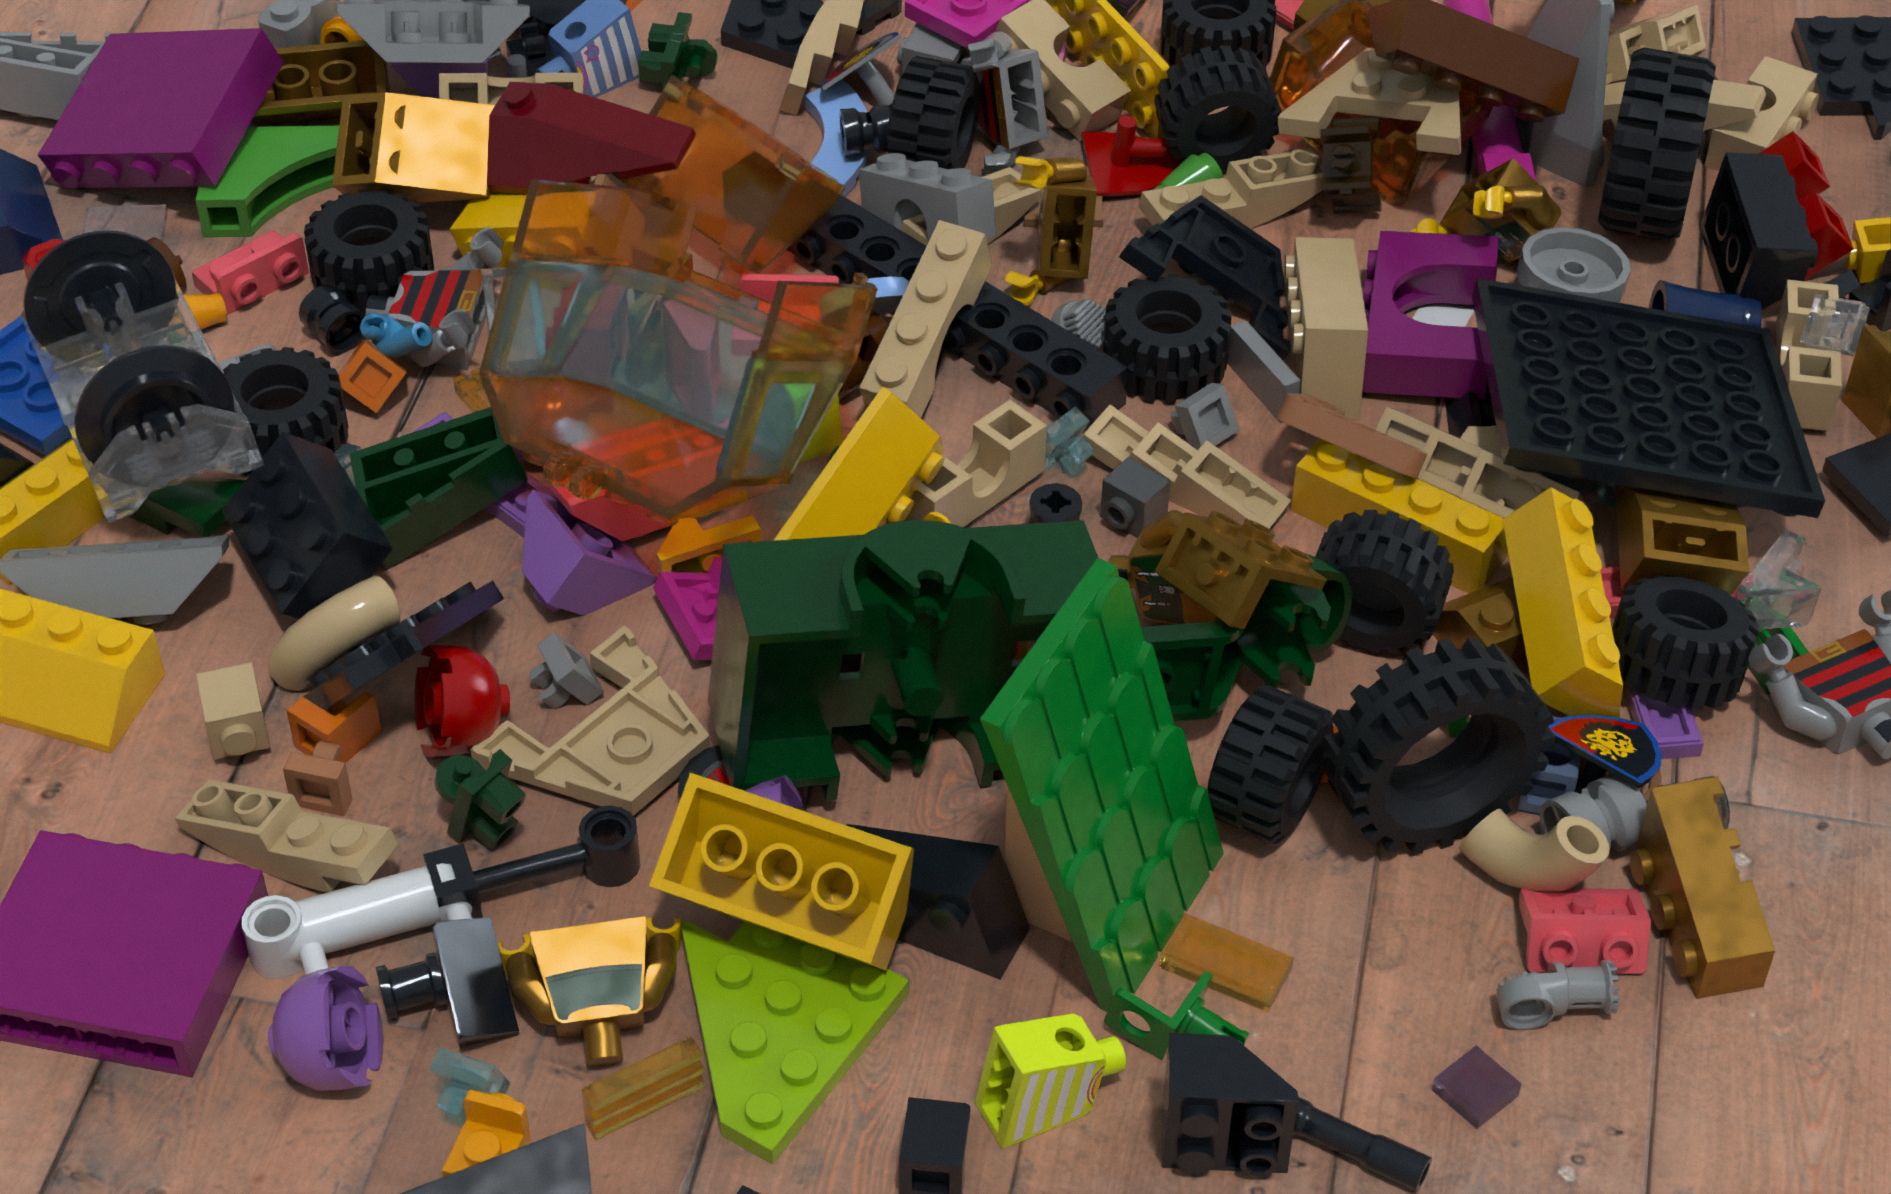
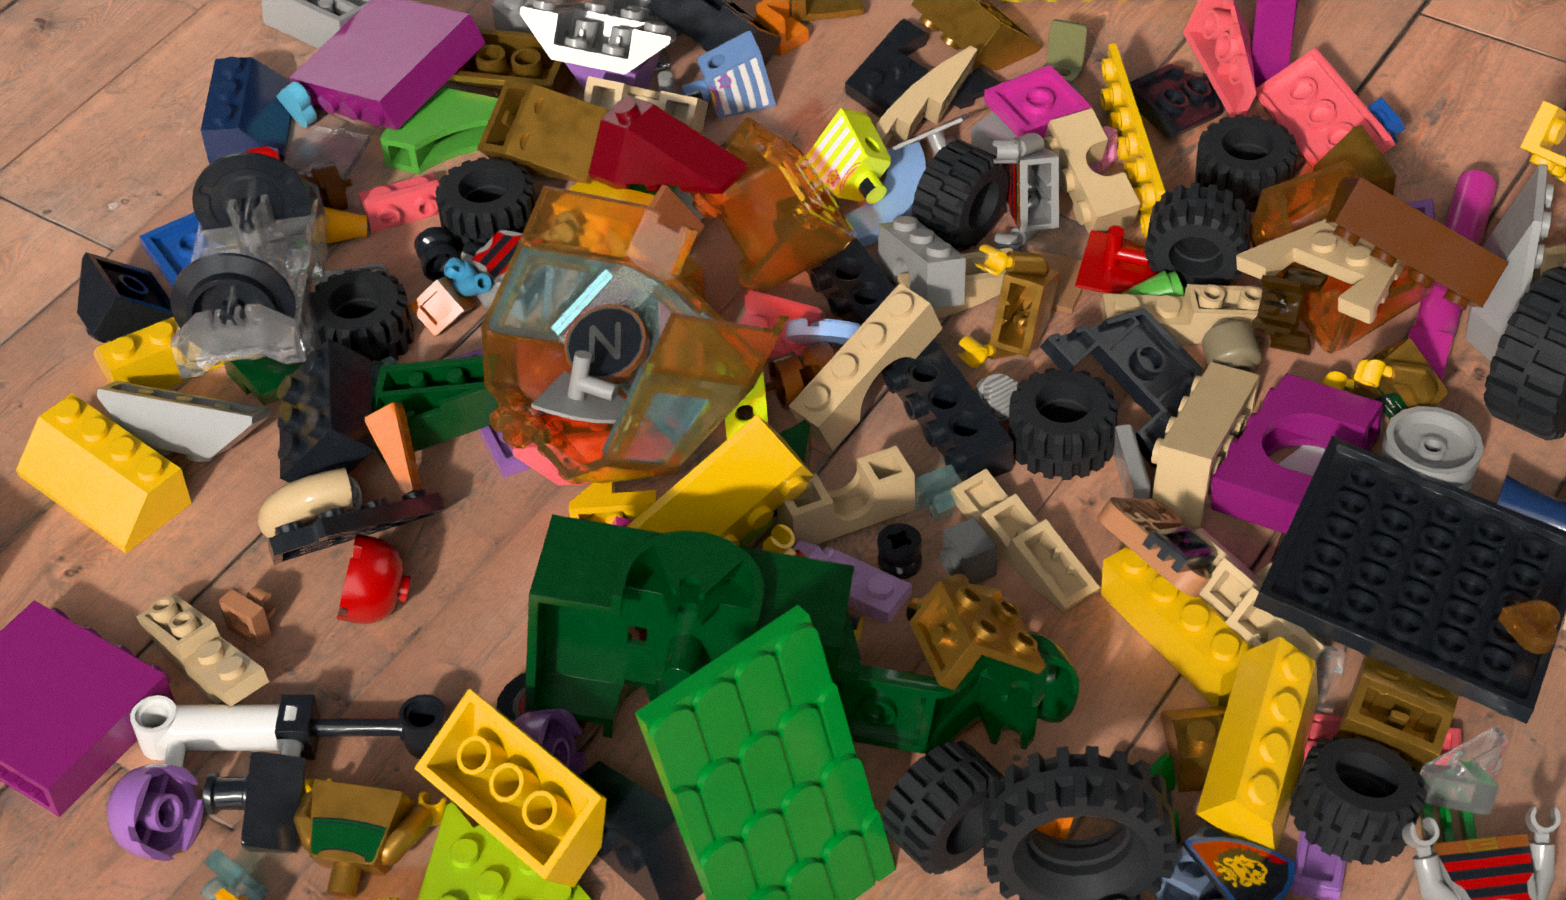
camera: 25 degrees right, 0 degrees up
(60, 184) = (298, 103): none -> medium azure tile
(232, 710) = (212, 545): tan brick -> none
(341, 724) = (285, 581): orange panel -> none
(411, 529) = (394, 440): none -> orange slope
(481, 799) = (345, 662): dark green hips -> none
(532, 46) = (687, 68): black tile -> none
(566, 672) = (464, 579): light grey tile -> none
(575, 562) = (511, 494): medium lavender slope -> none
(622, 749) = (470, 653): tan wing -> none
(631, 363) = (614, 339): none -> black tile
(634, 424) = (580, 395): none -> light grey shield
(675, 54) = (800, 97): dark green hips -> none
(786, 104) = (851, 157): none -> neon yellow torso
(864, 130) = (900, 190): black wheel -> none
(1205, 416) = (1063, 499): light grey tile -> none
(1300, 215) = (1232, 345): none -> dark tan head
(1391, 424) = (1190, 553): none -> black tile
(1394, 576) = (1122, 677): black tyre -> none
(1777, 418) = (1532, 624): none -> clear orange tile

